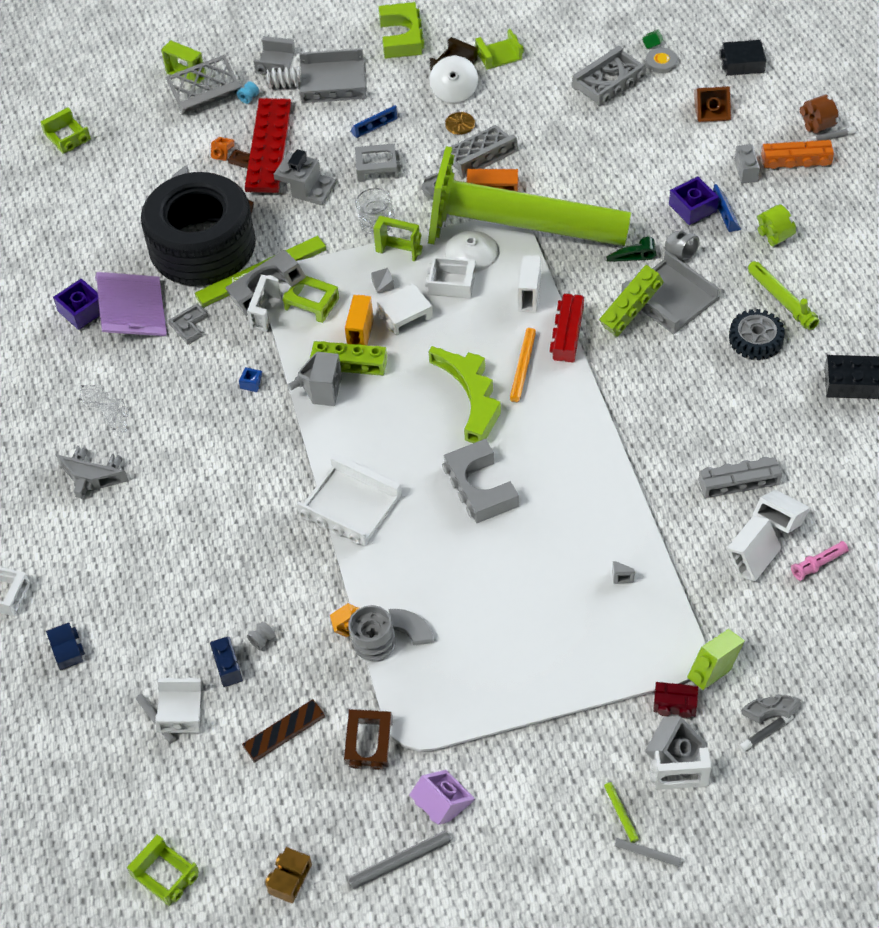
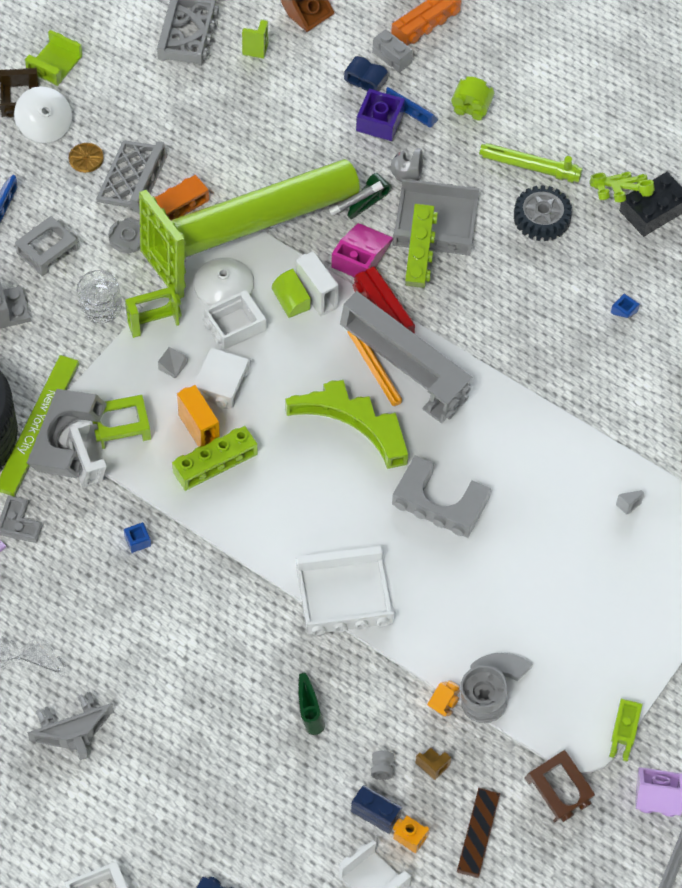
camera: 45 degrees left, 5 degrees up
(234, 695) = (412, 840): none -> light orange brick
(249, 562) = (309, 706): none -> dark green piece
(298, 660) = (433, 763): none -> pearl gold panel
(320, 378) = (214, 494): light grey piece -> none
(457, 732) = (625, 727): none -> lime hinge
(509, 283) = (291, 293): none -> lime brick
(554, 405) = (410, 354): none -> light grey brick
(591, 281) = (359, 250): none -> dark pink slope
(620, 246) = (356, 198): none -> light grey bar
(649, 105) = (255, 41): none -> lime panel
(711, 169) = (365, 74): none -> dark blue brick
(739, 477) = (642, 353): light grey brick -> none
(758, 436) = (625, 307): none -> blue slope
(844, 347) = (620, 181): none -> lime plant

